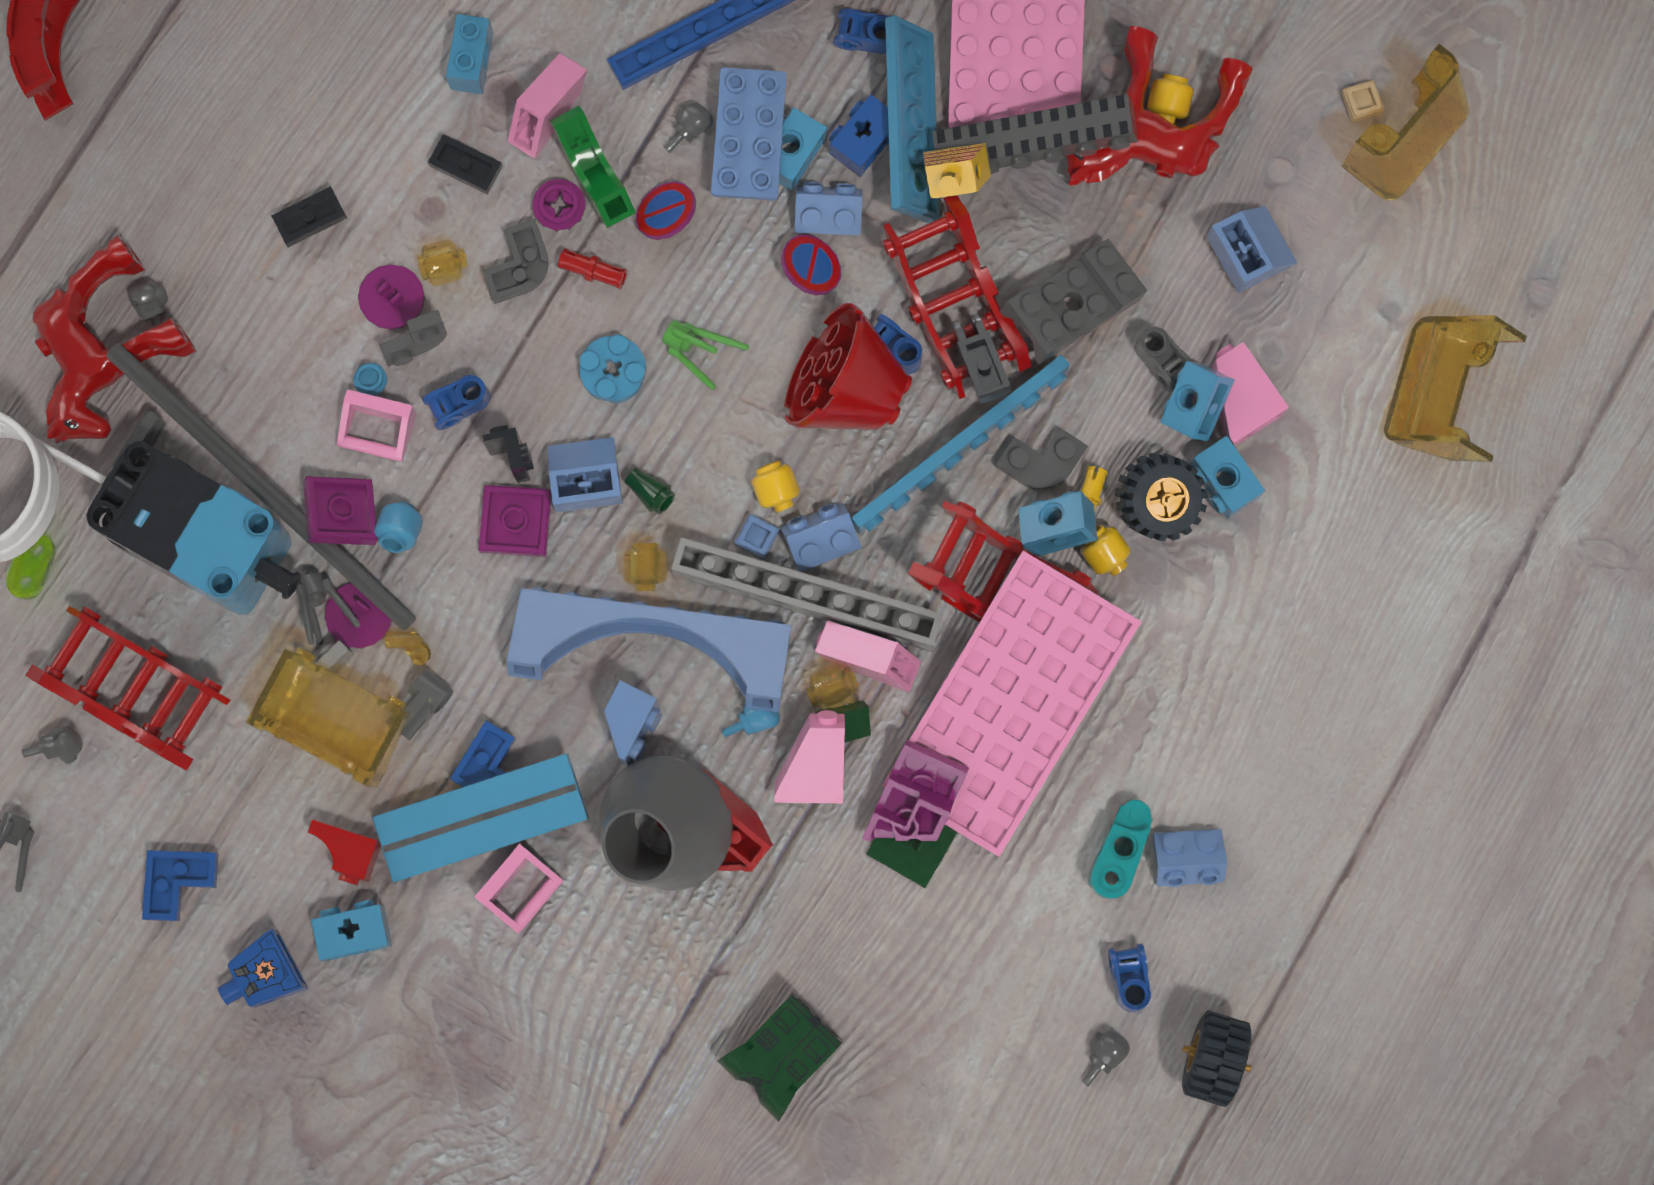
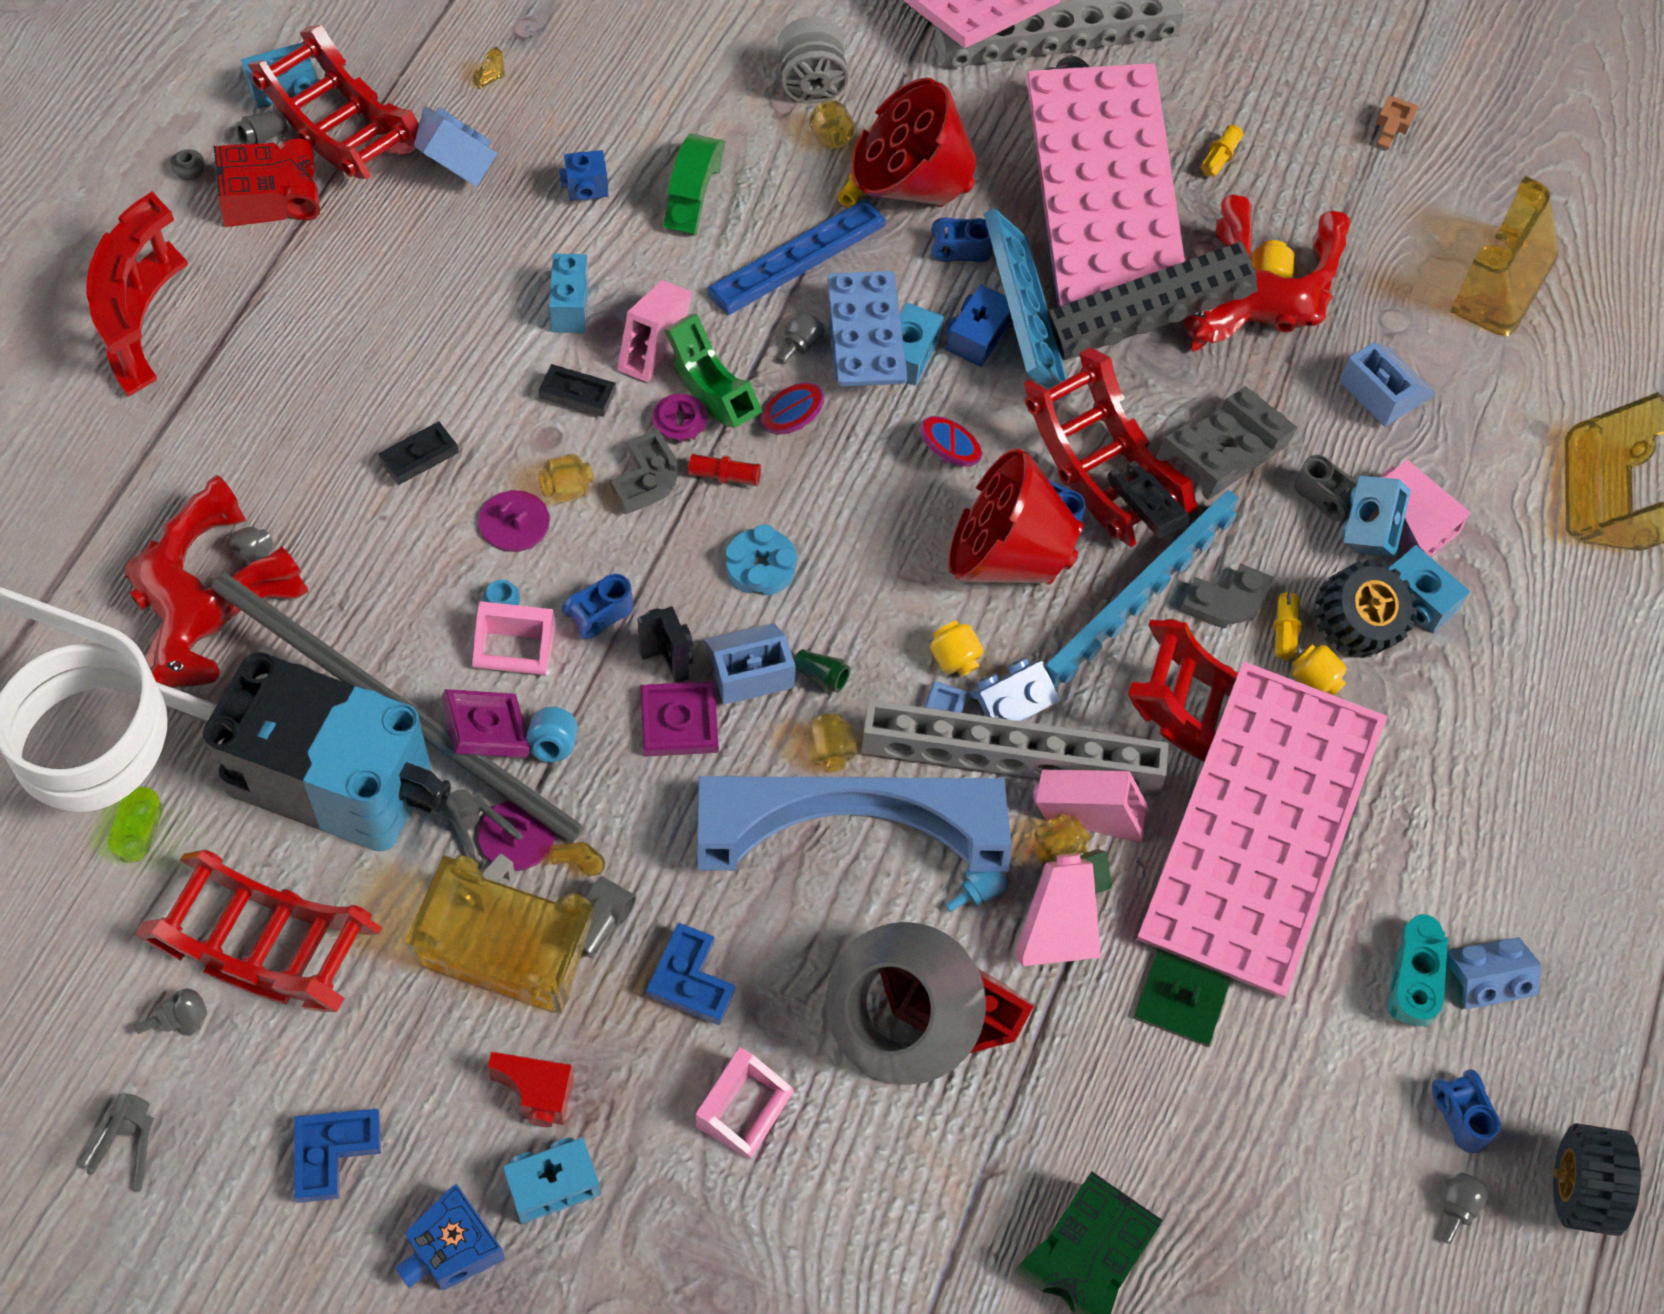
camera: 10 degrees left, 20 degrees down
(425, 334) = (559, 544): dark grey plate -> none
(480, 817) = (687, 1027): dark azure tile -> none
(630, 717) = (845, 895): medium blue slope -> none
(684, 336) = (830, 522): bright green plant -> none
(828, 209) = (958, 393): medium blue bracket -> none
(916, 796) = (1181, 939): magenta slope -> none
(954, 170) = (1081, 331): yellow torso -> none
(1075, 527) = (1267, 642): dark azure brick -> none
(1362, 101) = (1453, 254): tan tile -> none

